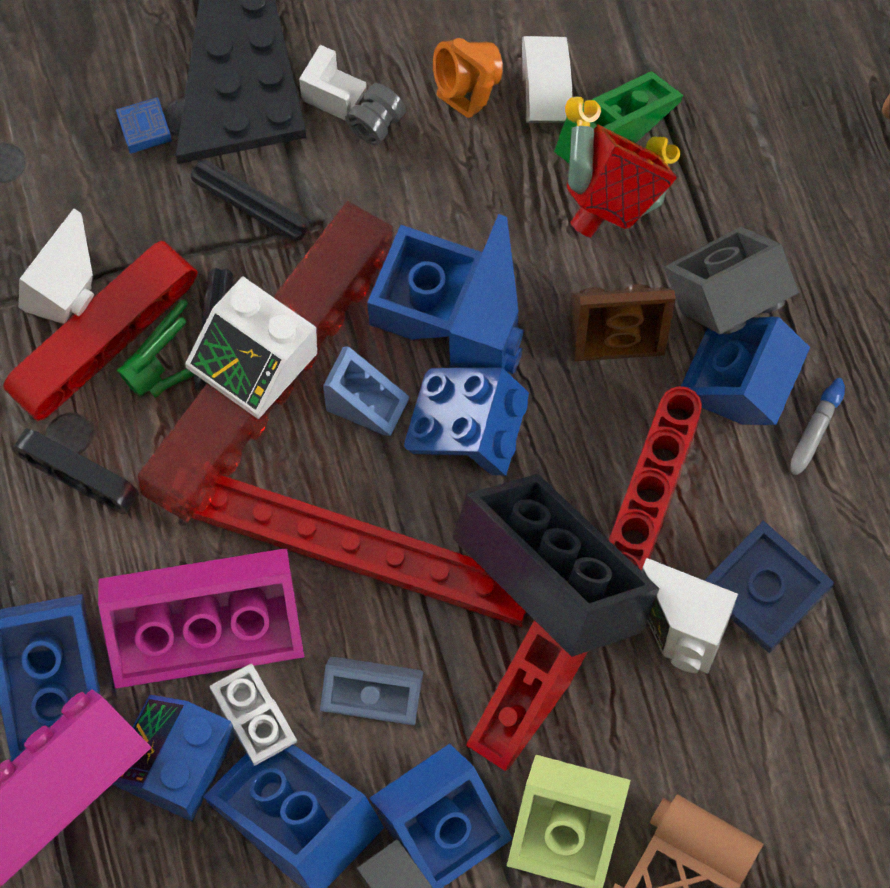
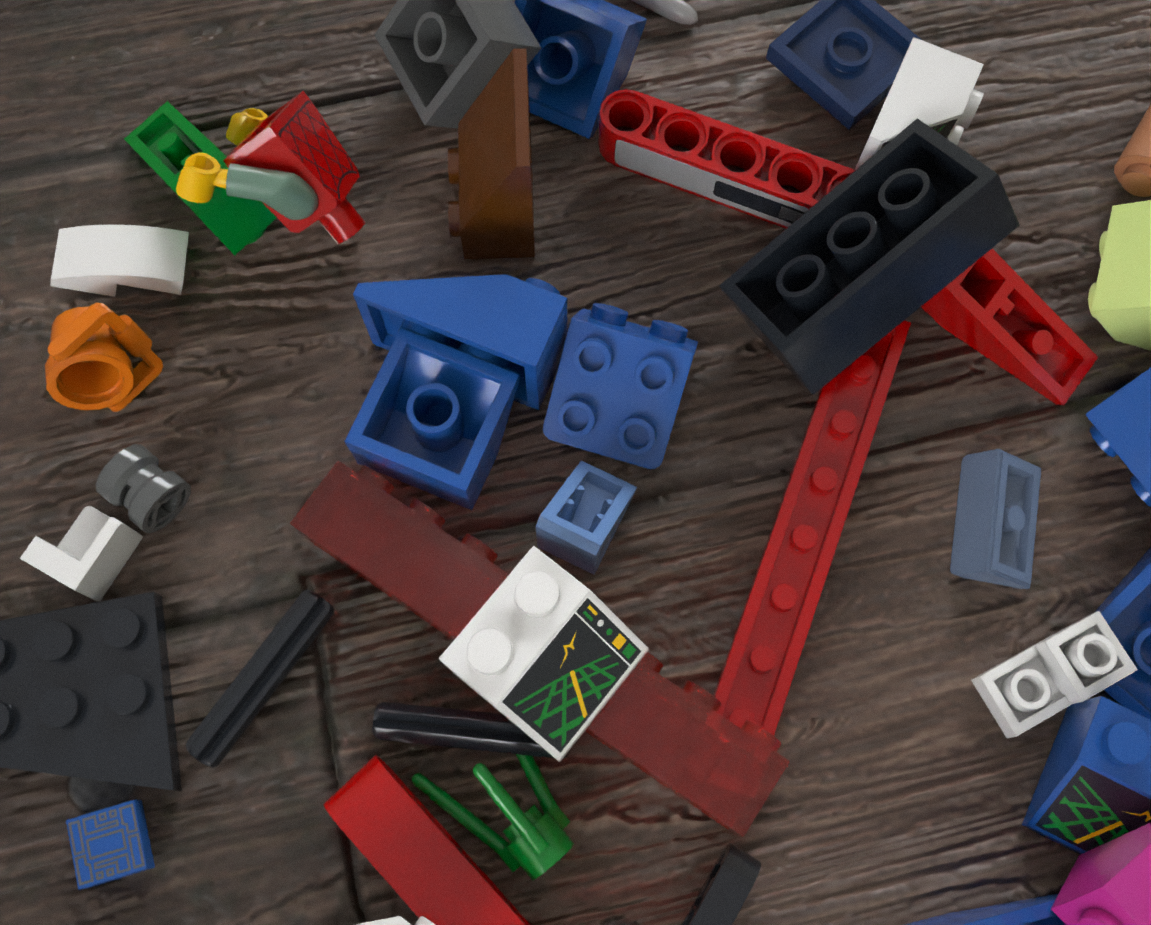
camera: 90 degrees left, 5 degrees up
(200, 618) = (917, 753): dark pink slope -> none

